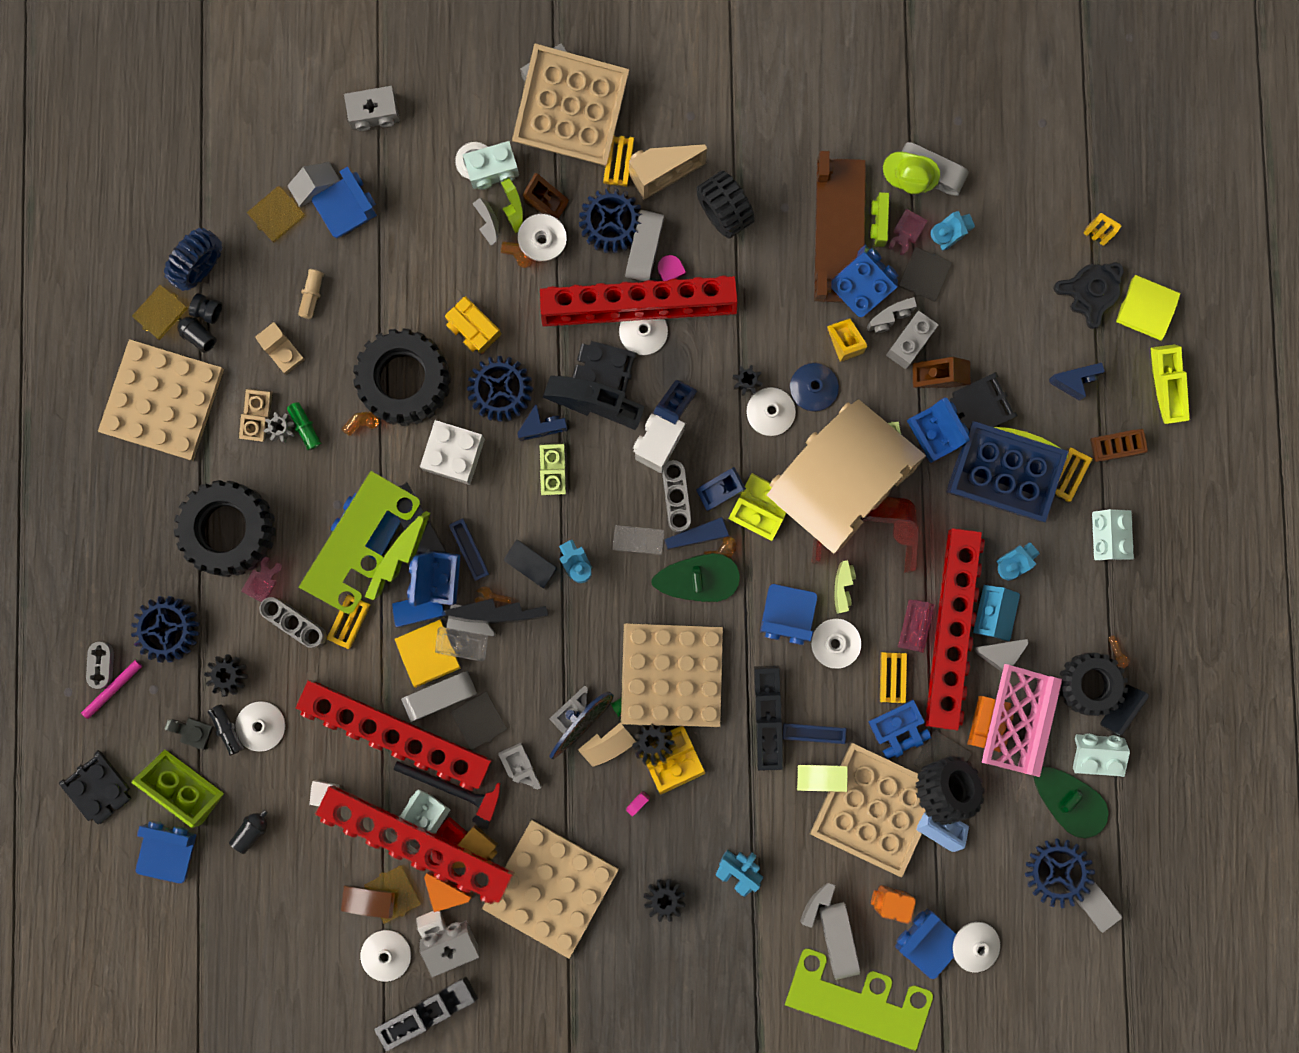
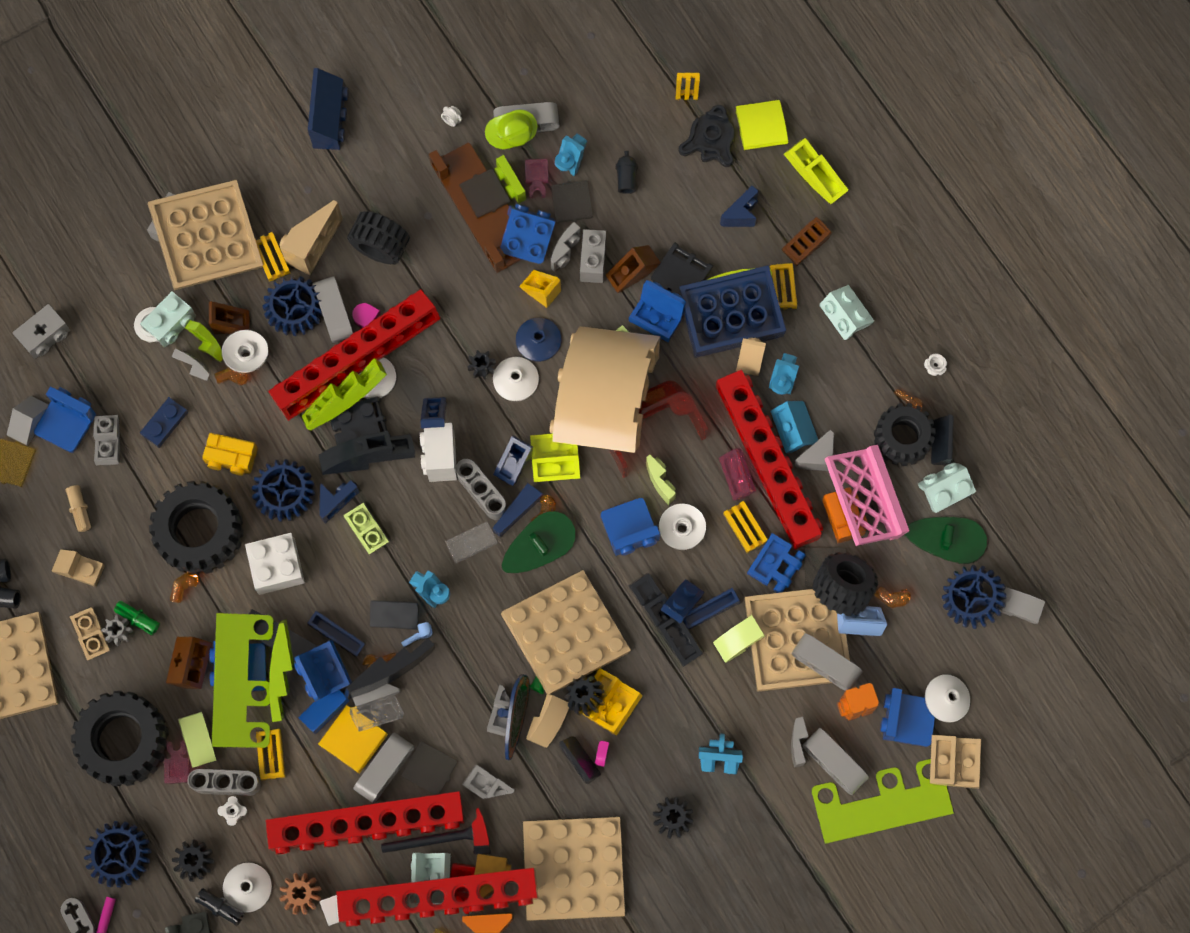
camera: 30 degrees left, 10 degrees down
(292, 569) = (197, 739): none -> yellowish green slope
(292, 654) = (239, 811): none -> white plate
(297, 771) = (303, 884): none -> nougat gear
(324, 497) = (189, 662): none -> reddish brown brick
(372, 246) = (106, 440): none -> light grey slope
(431, 259) = (163, 422): none -> dark blue plate
(548, 595) = (425, 631): none -> light blue hand
(600, 335) = (338, 399): none -> lime slope
(615, 796) = (579, 759): none -> black slope
(752, 50) = (327, 110): none -> dark blue slope
(793, 712) = (682, 601): none -> dark blue plate
(849, 218) = (484, 193): none -> clear smoke piece
(864, 124) = (451, 115): none -> white plate
(887, 850) = (826, 662): none -> light grey beam
(947, 1007) = (955, 761): none -> tan slope
(985, 828) = (893, 599): none -> clear orange arm
(992, 278) = (626, 174): none -> black piece
(998, 525) = (751, 356): none -> tan slope
(1157, 635) = (938, 359): none -> white plate

